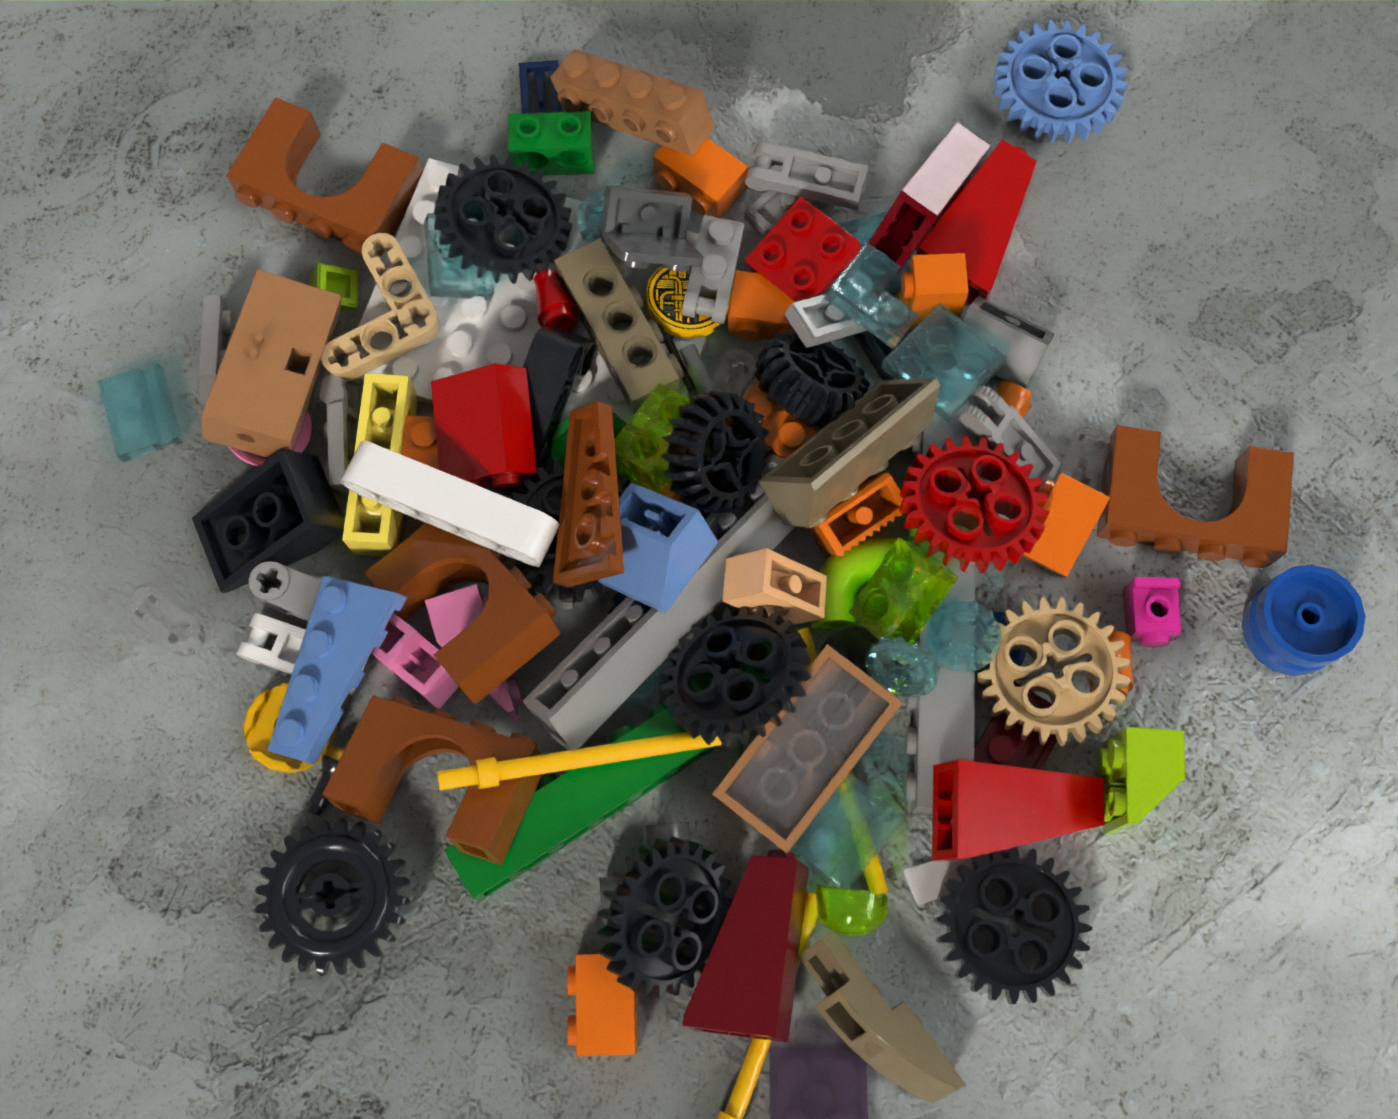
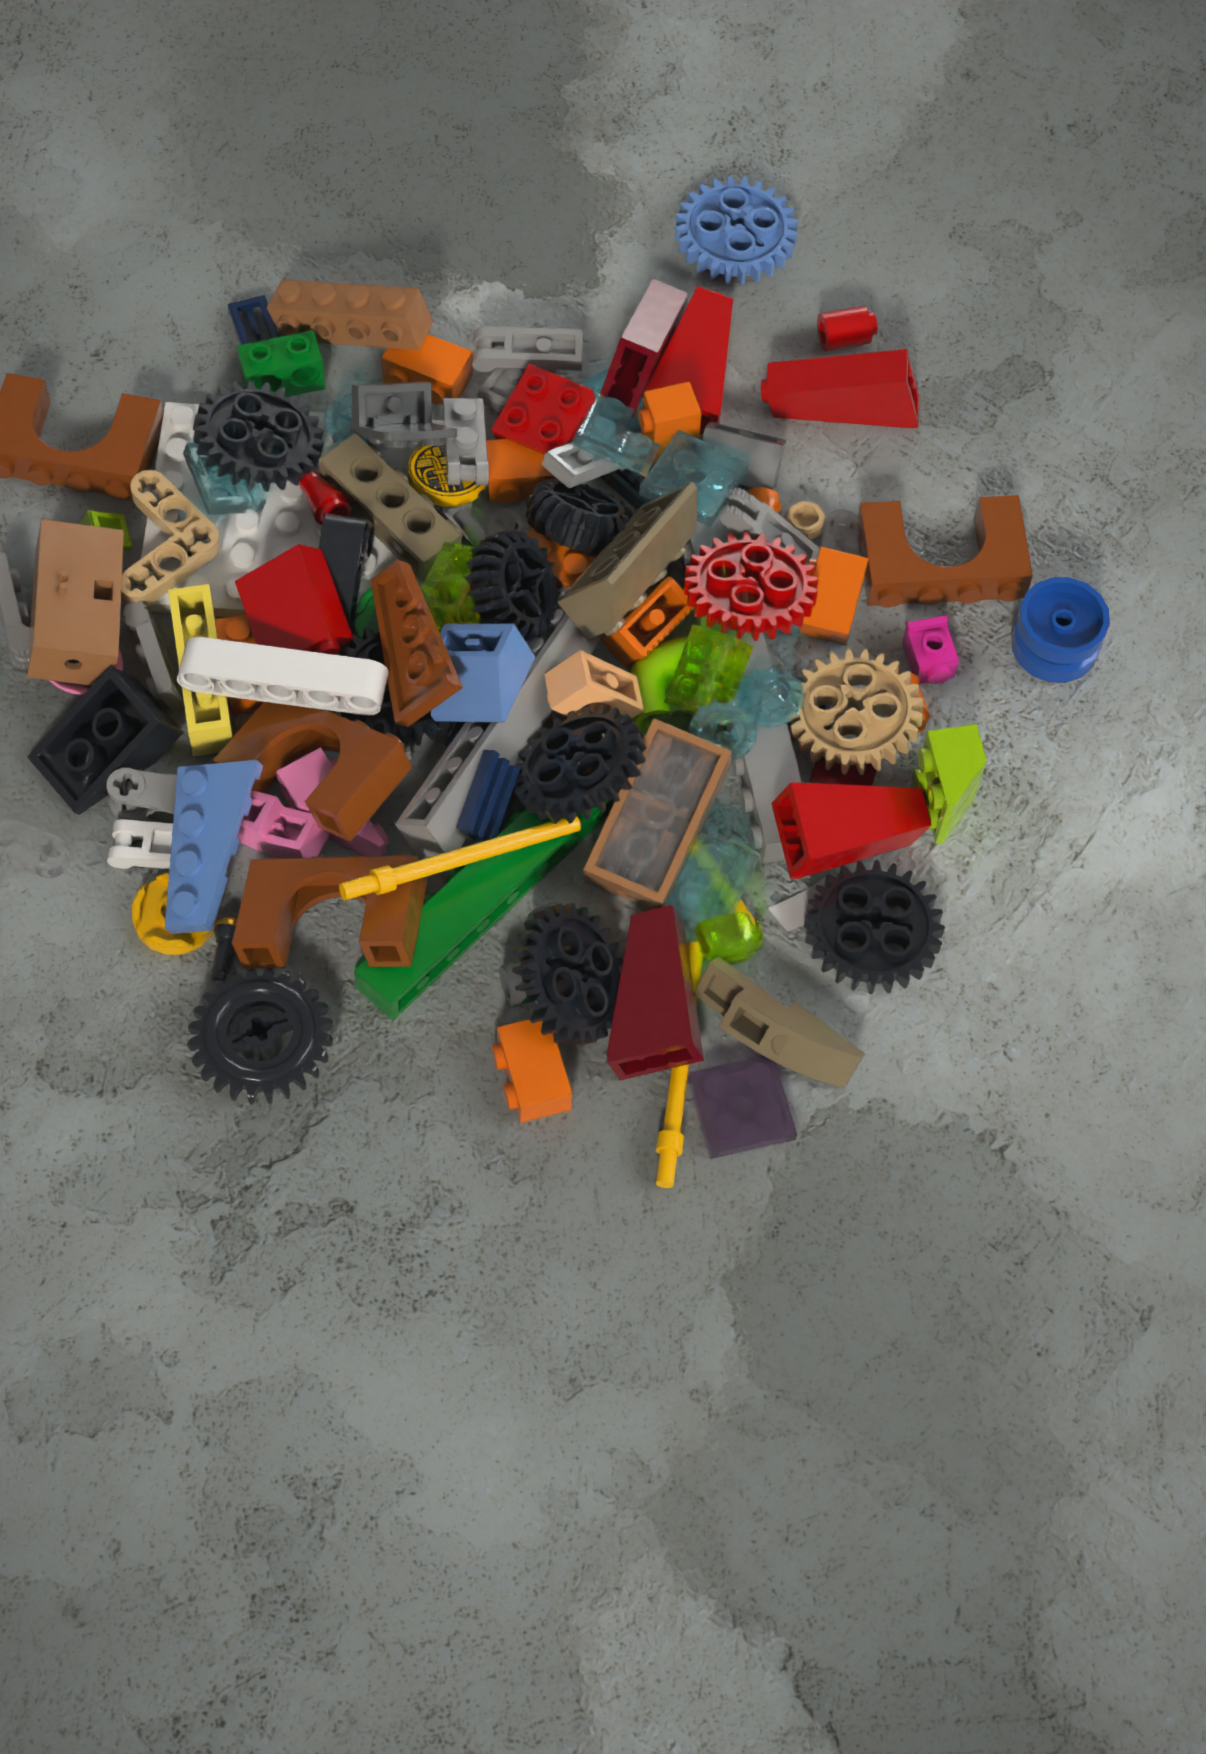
camera: 20 degrees left, 10 degrees down
(629, 690) = (488, 797): none -> dark blue tile
(1054, 426) = (806, 518): none -> tan tile
(1132, 287) = (845, 389): none -> red slope
(1150, 215) = (846, 328): none -> red brick

